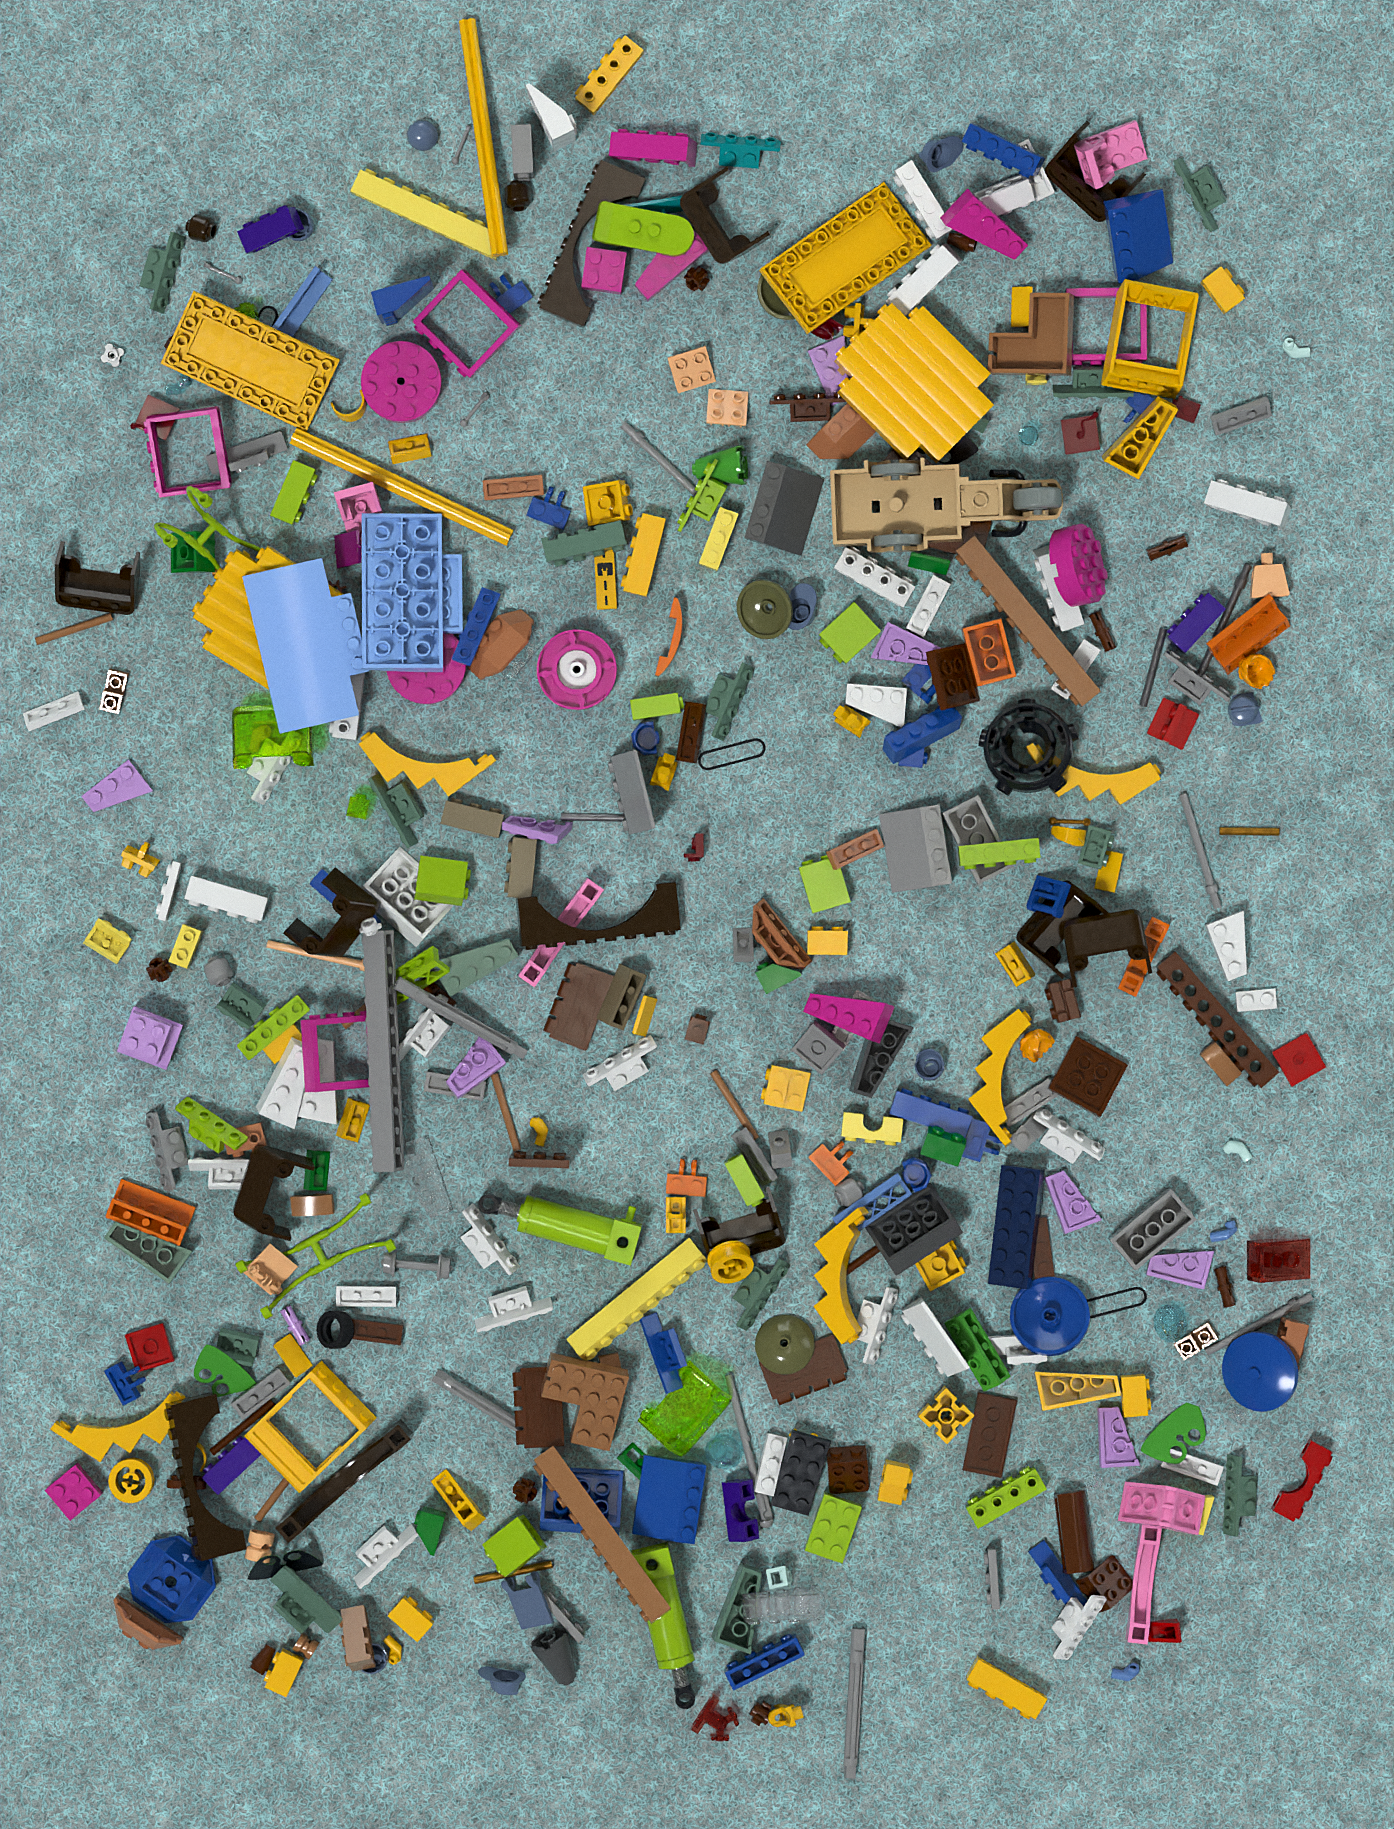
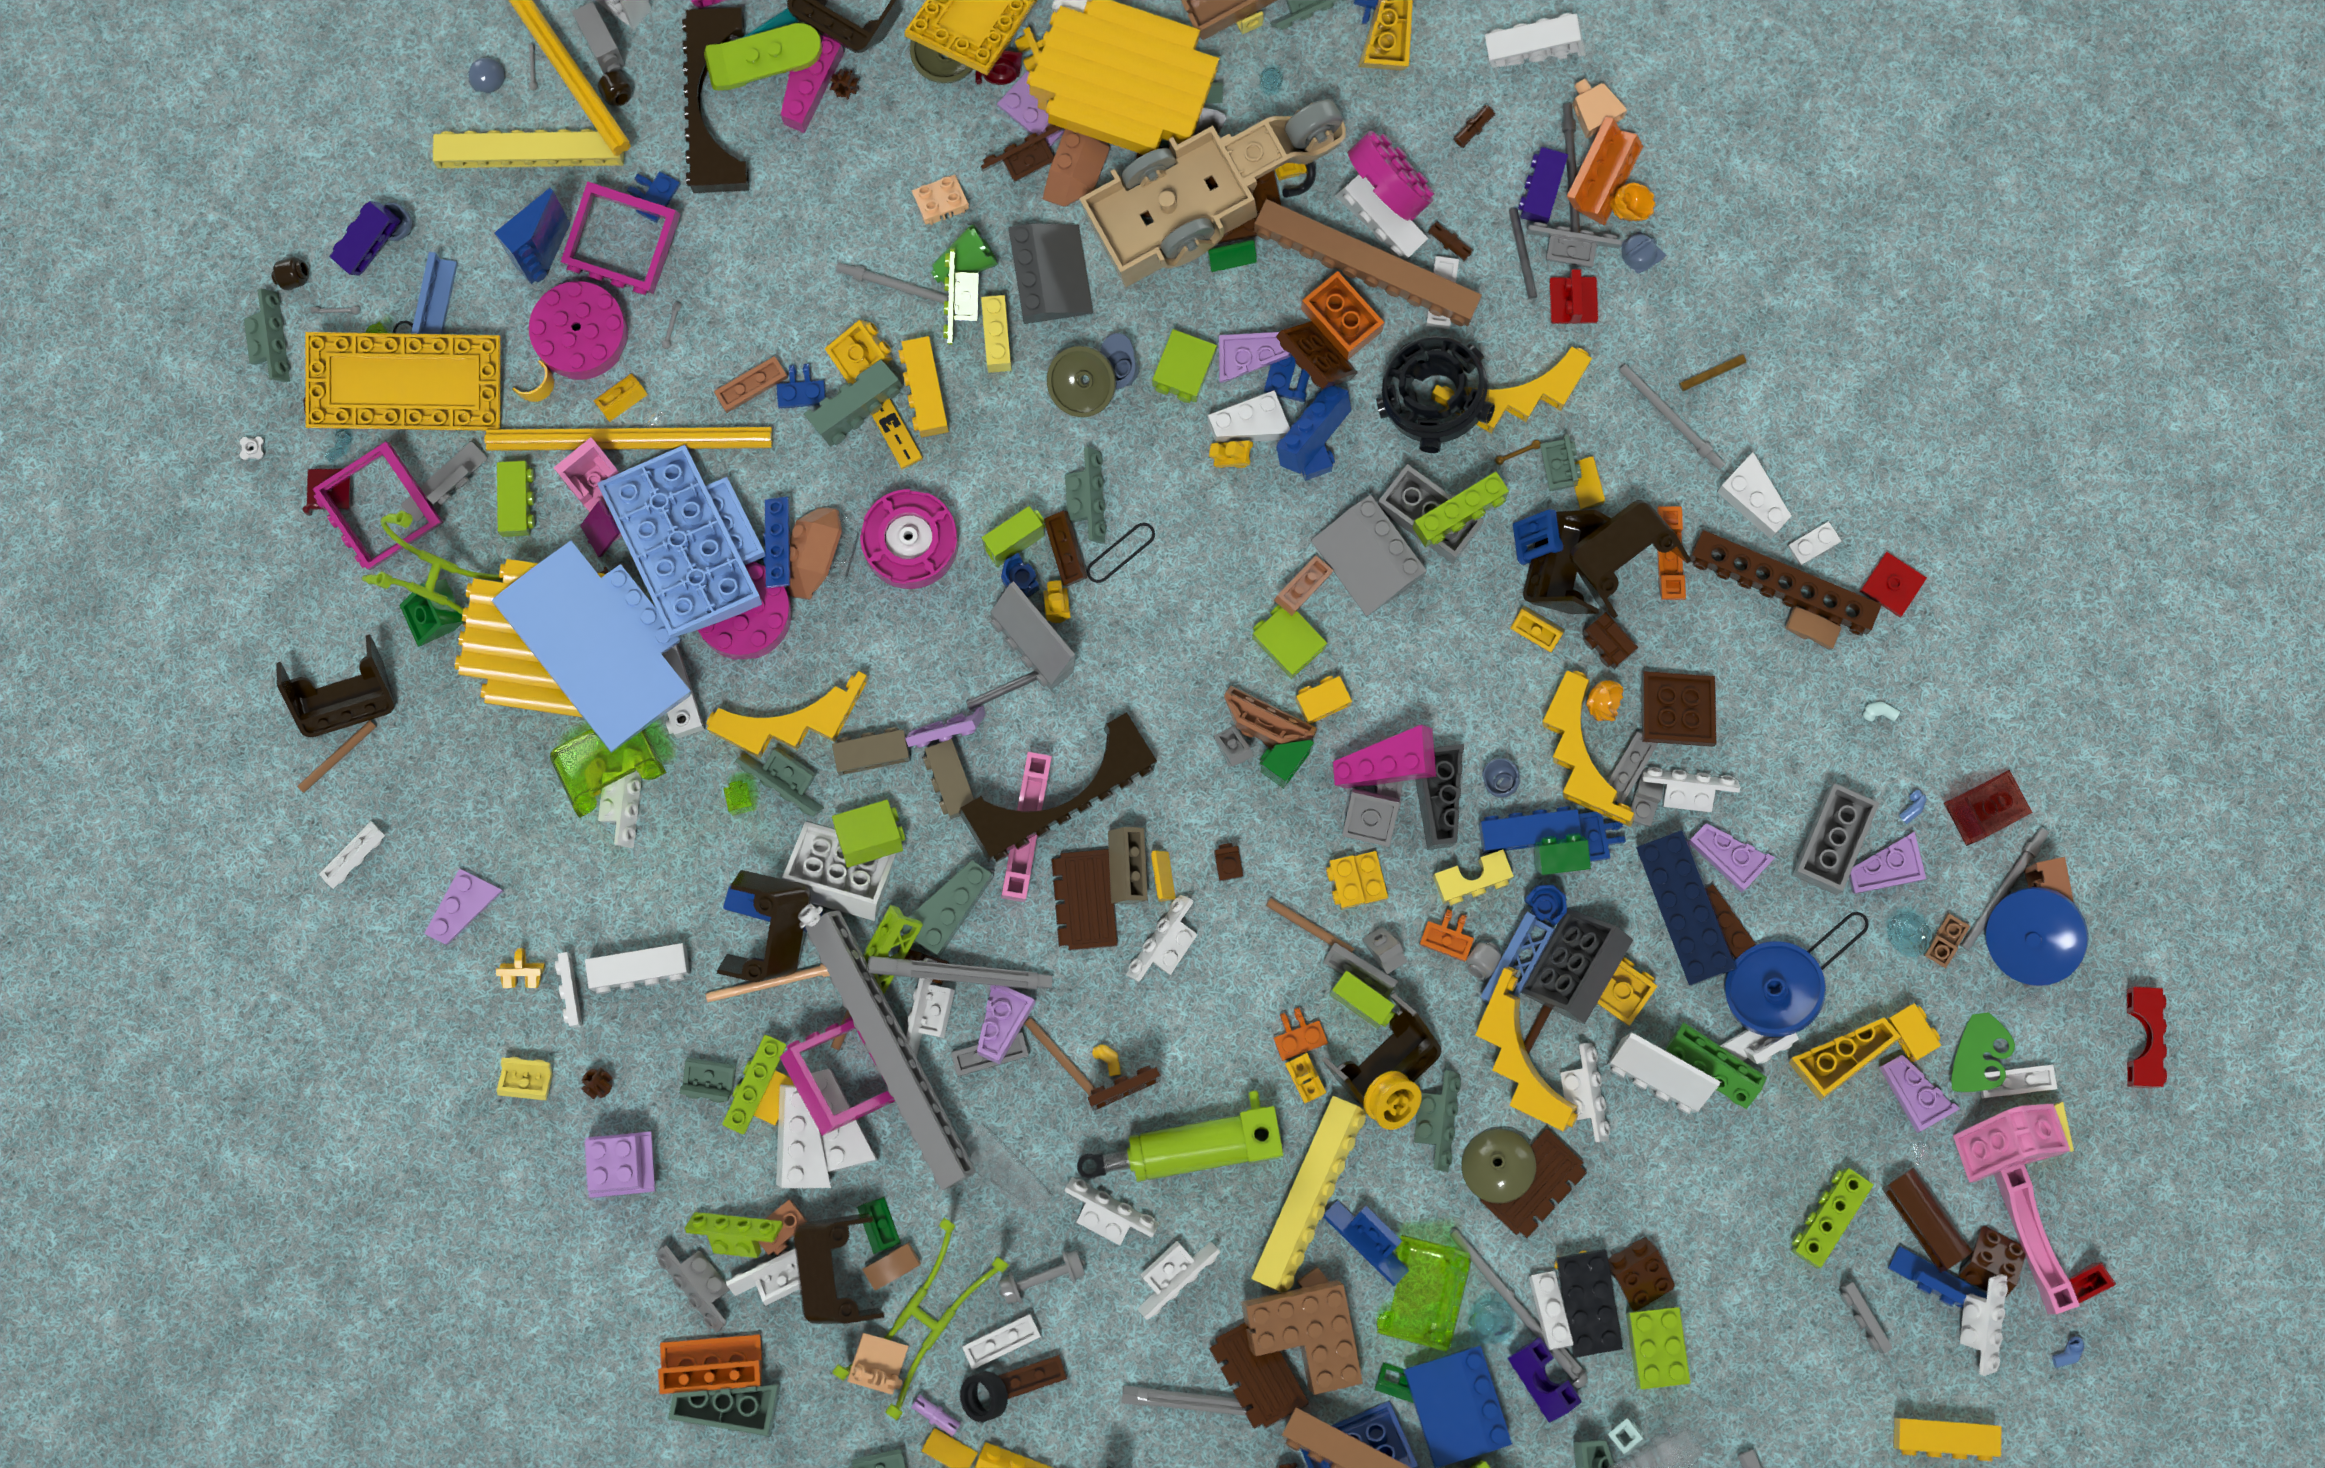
camera: 25 degrees left, 10 degrees down
(114, 691) = (411, 802): slope -> none
(185, 946) = (615, 1042): light yellow brick -> none
(218, 971) = (665, 1053): light grey head -> none
(352, 1120) = (893, 1148): yellow slope -> none
(604, 270) = (742, 120): dark pink brick -> none
(664, 662) = (989, 433): orange slope -> none
(691, 369) = (883, 177): light nougat hinge -> none
(698, 845) = (1131, 663): dark red bracket -> none
(875, 578) = (1181, 296): white brick -> none
(894, 1481) = (1698, 1261): yellow brick -> none
(928, 606) = (1253, 299): white plate -> none
(945, 1402) = (1731, 1147): yellow brick -> none
(989, 1435) = (1776, 1157): reddish brown tile -> none
(1068, 835) = (1528, 466): yellow helmet -> none
(1080, 434) = (1324, 54): dark red hat -> none
(1224, 1286) = (1946, 866): reddish brown pin -> none
(1239, 1495) = (2085, 1088): sand green bracket -> none

